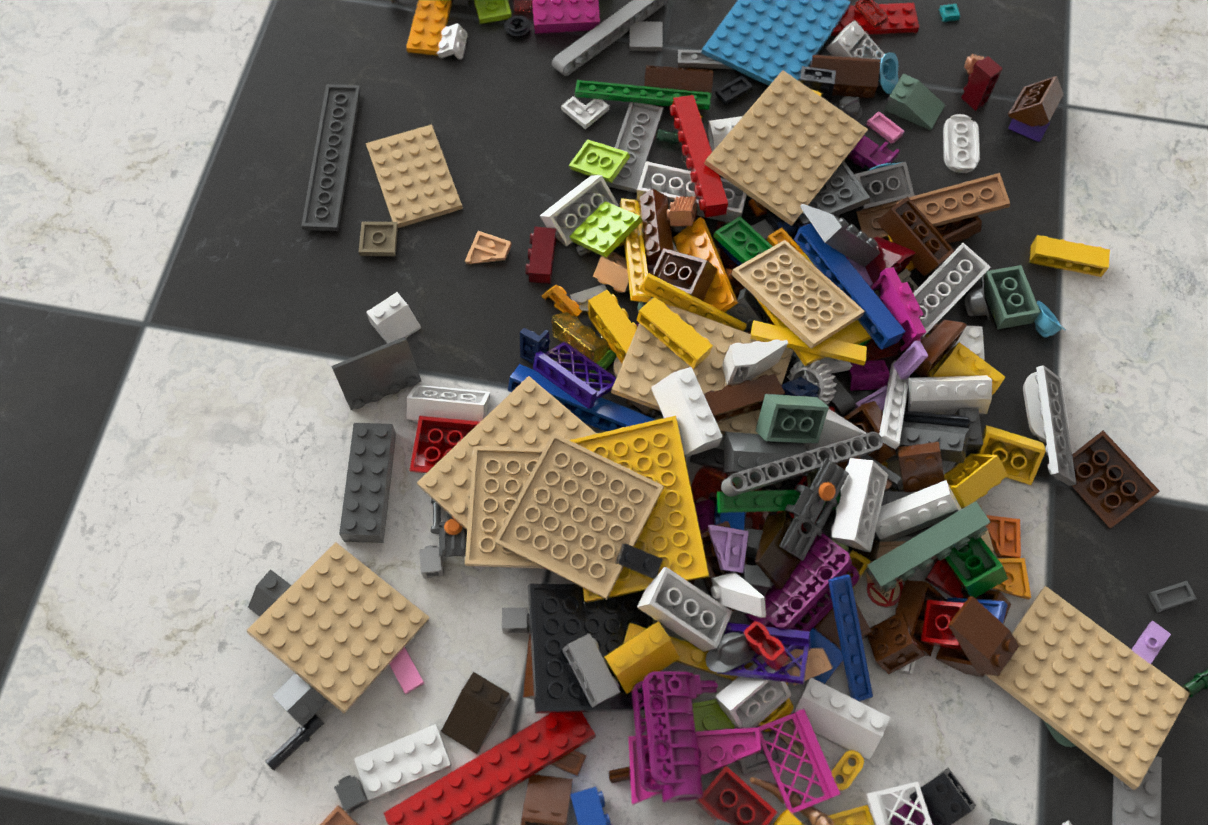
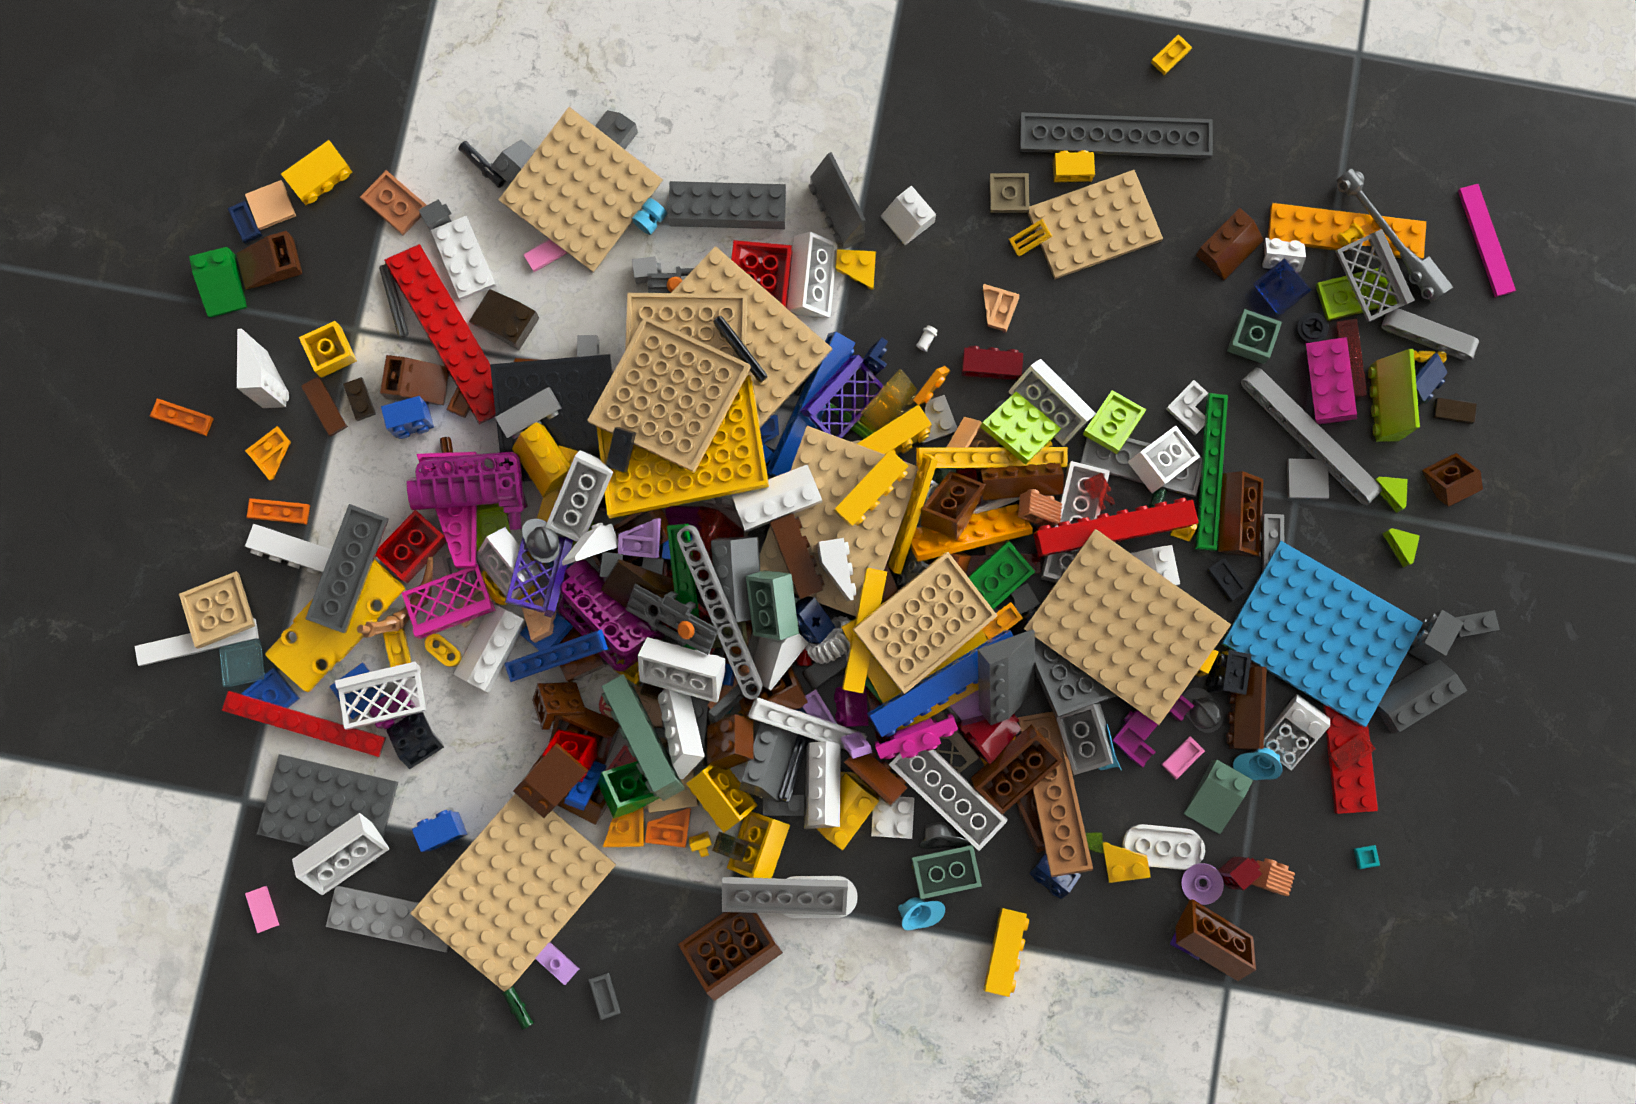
camera: 90 degrees right, 15 degrees up
(261, 113) = (1171, 54): none -> yellow plate
(358, 187) = (1073, 166): none -> yellow brick
(373, 558) = (652, 210): none -> medium azure wheel
(429, 235) = (1033, 244): none -> yellow tile
(439, 78) = (1230, 244): none -> reddish brown slope
(439, 367) = (857, 265): none -> yellow wing
(483, 38) = (1282, 286): none -> clear blue brick
(515, 308) = (926, 338): none -> white pin
(525, 61) = (1254, 336): none -> sand green brick
(529, 451) = (740, 348): none -> black axle
(635, 125) = (1163, 459): none -> white slope
(664, 168) = (1098, 488): none -> clear red plate
(766, 645) = (541, 566): red brick -> none
(980, 164) = (1125, 864): none -> yellow wing
(993, 110) = (1202, 893): none -> lavender dish
(998, 220) = (1058, 886): none -> dark blue bracket
(1012, 505) = (700, 843): none -> yellow tile
(1016, 477) = (730, 846): none -> clear smoke brick
(1043, 763) = (439, 831): none -> blue brick

